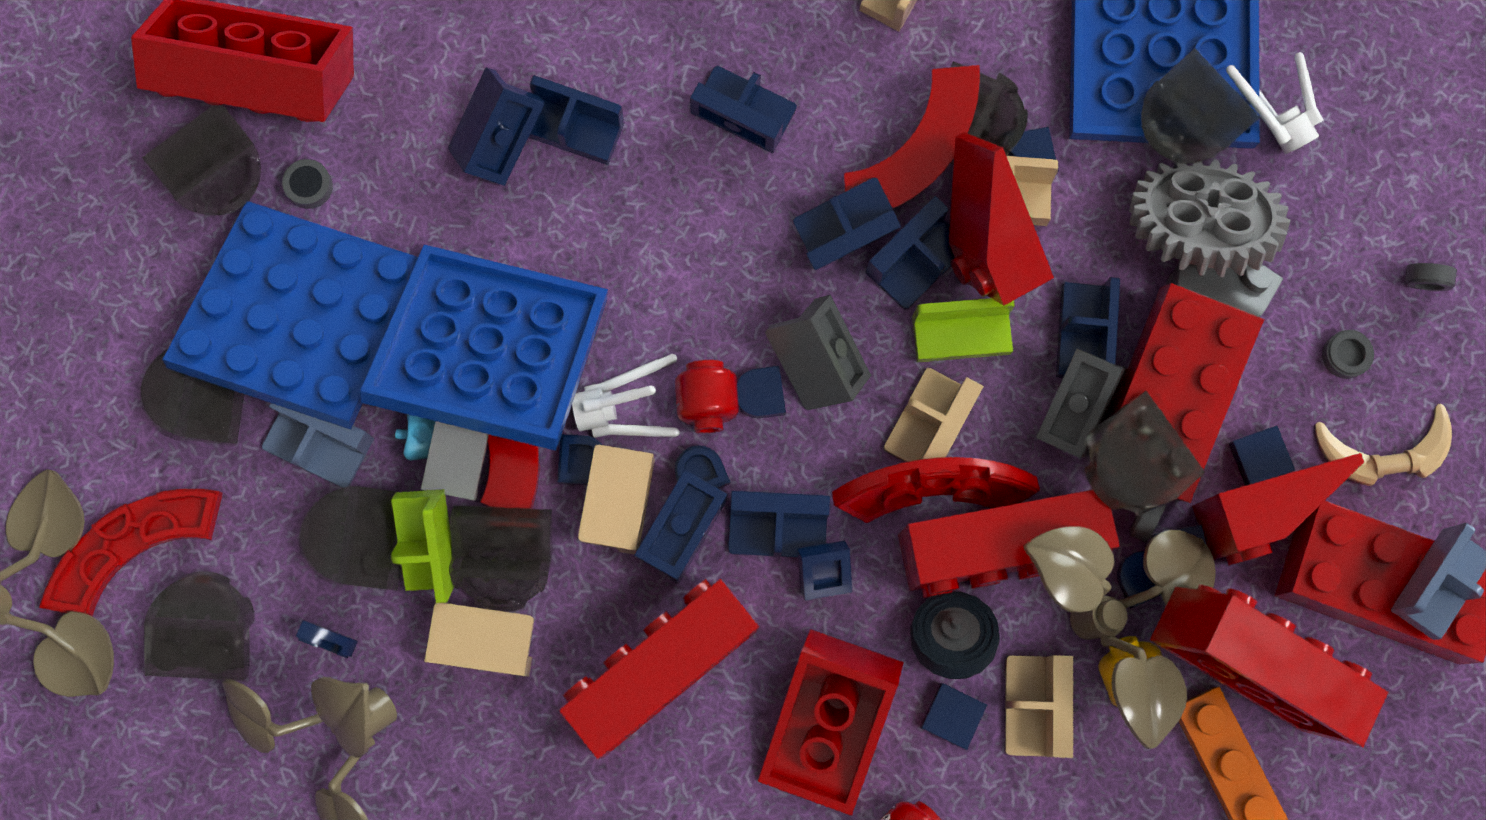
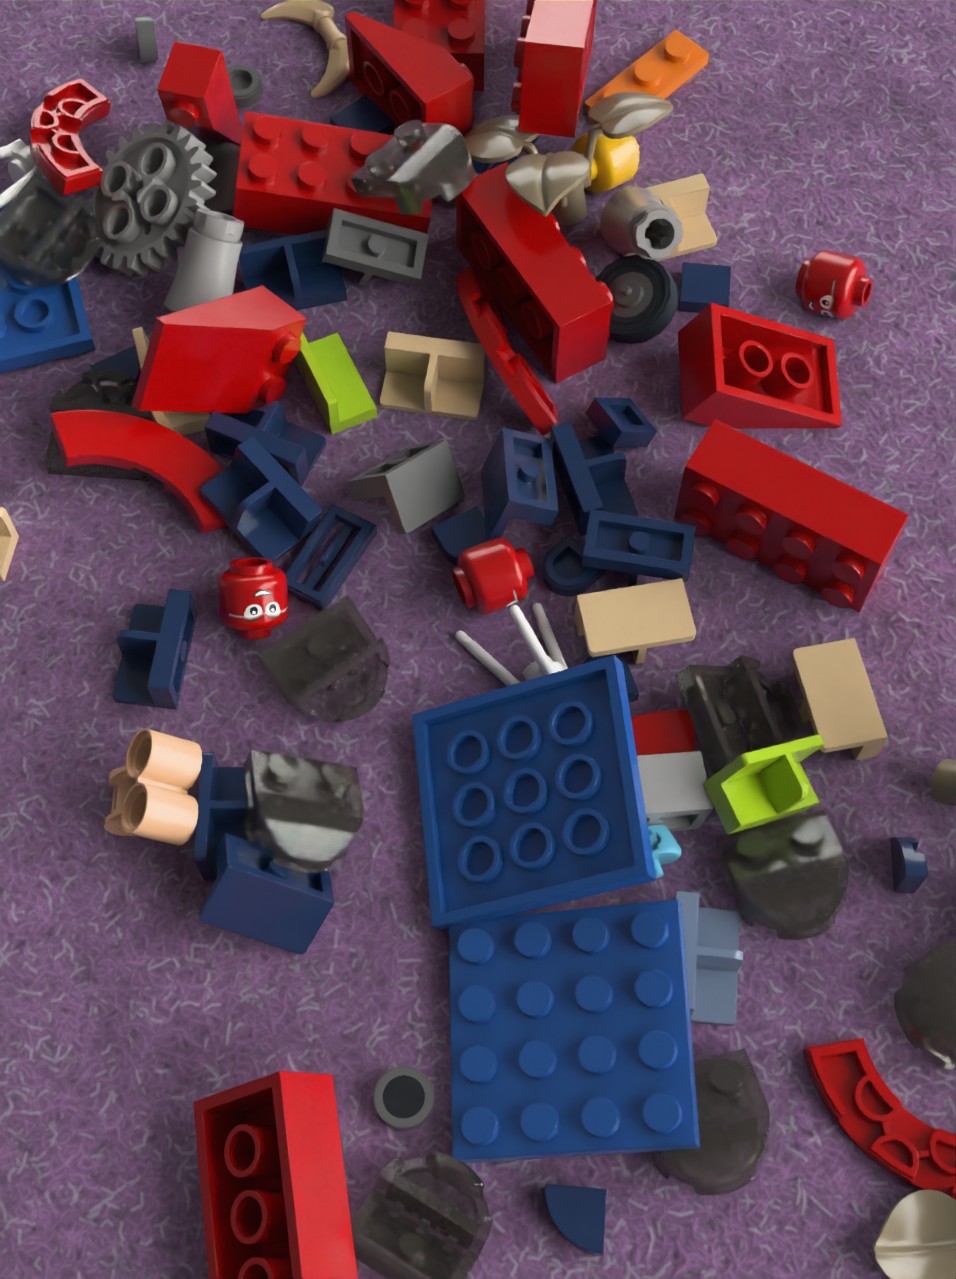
camera: 105 degrees left, 15 degrees down
(174, 276) = (578, 1215): none -> dark blue tile
(551, 173) = (302, 809): none -> clear smoke slope
(602, 63) = (154, 787): none -> light nougat piece
(677, 238) = (330, 665): none -> clear smoke slope
(757, 191) = (252, 597): none -> red head
(757, 242) = (352, 522): none -> dark blue tile
(785, 450) = (518, 481): none -> dark blue panel
(1019, 663) = (628, 216): none -> light grey plant
(1100, 243) = (207, 261): none -> light grey plant
(1292, 279) = (199, 93): none -> red slope
(1321, 155) = (56, 134): none -> red tile

